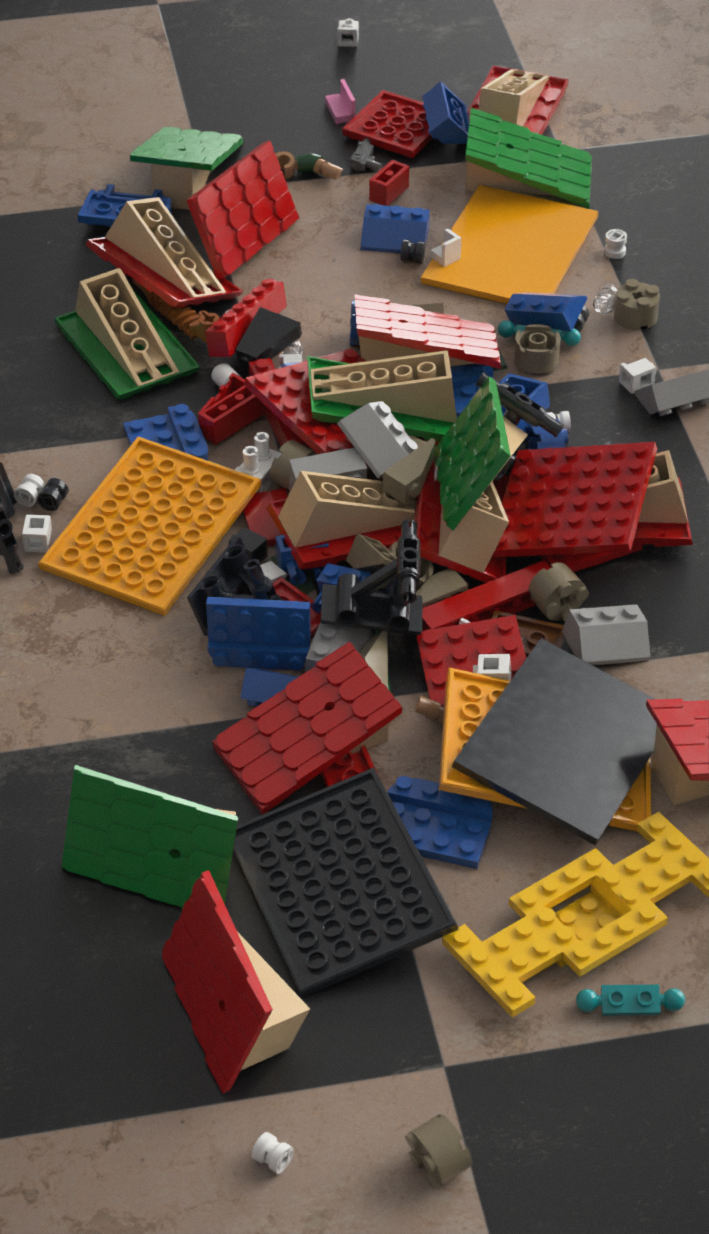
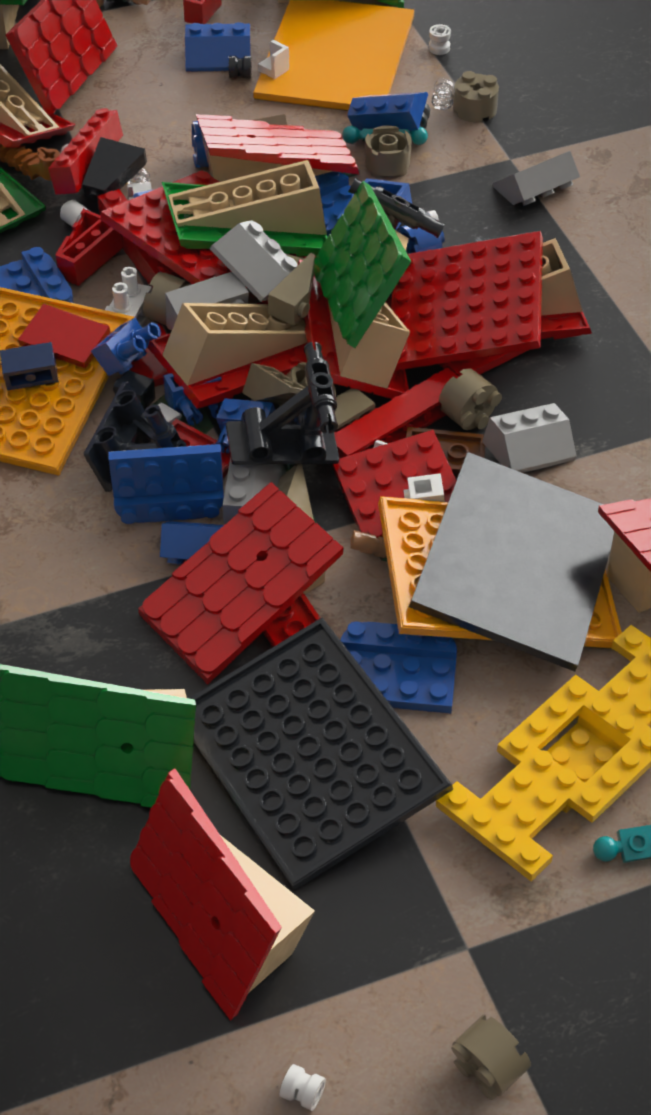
camera: 10 degrees left, 5 degrees up
(154, 513) = (29, 366): none -> dark blue brick
(191, 489) = (70, 334): none -> red tile
(245, 504) = (124, 346): none -> blue brick
(637, 375) = (492, 166): white brick -> none

